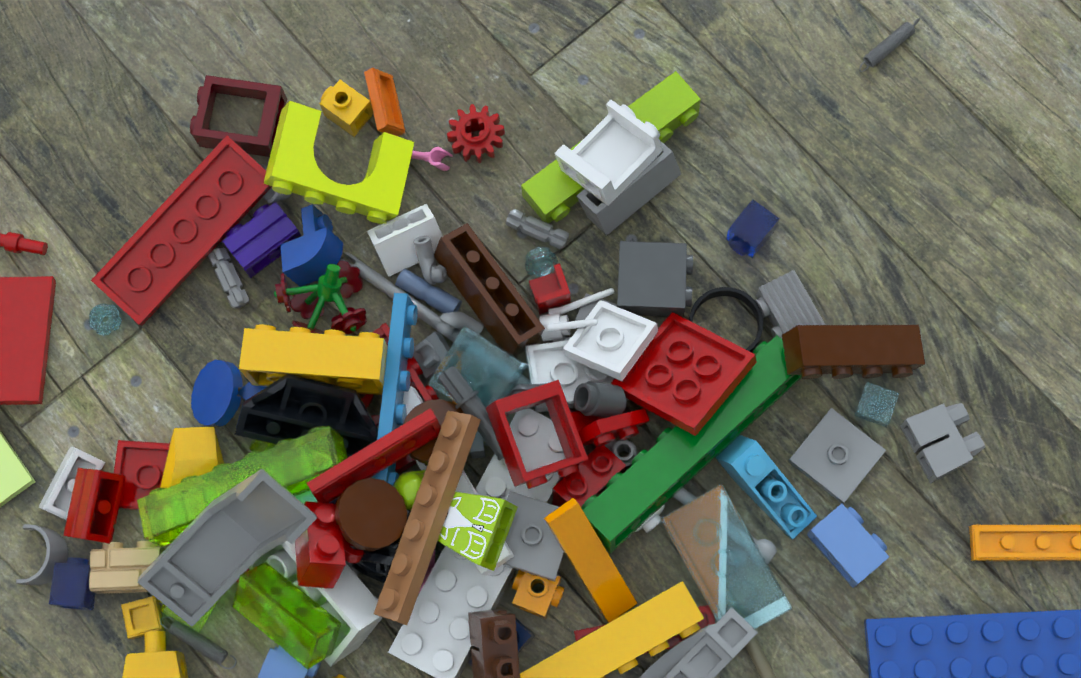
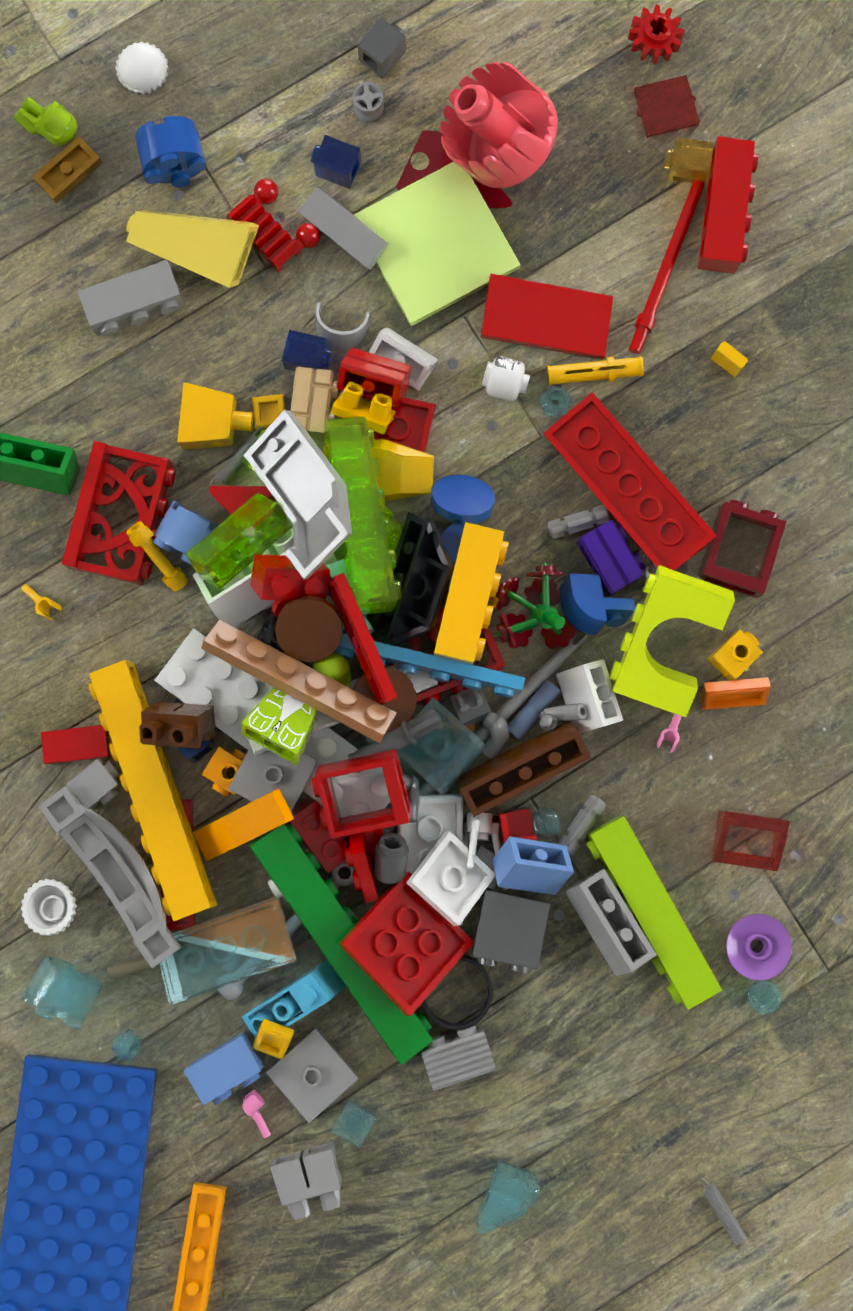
camera: 90 degrees right, 10 degrees up
(45, 154) = (729, 359): none -> yellow tile
(61, 249) = (631, 368): none -> yellow pin
(84, 371) = (505, 378): none -> white head
(127, 523) = (351, 405): none -> yellow hips
(241, 633) = (234, 497): none -> red slope
(463, 131) = (697, 769): red gear -> none
(514, 95) = (728, 818): none -> clear red tile
(584, 264) = (532, 865): none -> medium blue brick
(611, 153) = (639, 911): white panel -> none
(629, 34) = (774, 949): none -> medium lavender dish
(676, 37) = (764, 997): none -> clear light blue plate
(751, 229) = (546, 1035): clear blue brick -> none
(807, 498) = (273, 1039): none -> yellow tile
(845, 655) = (126, 1045): none -> clear light blue plate
(853, 350) = (404, 1112): reddish brown brick -> none
(879, 512) = (251, 1104): none -> bright pink hand
(917, 245) = (507, 1196): none -> clear light blue slope

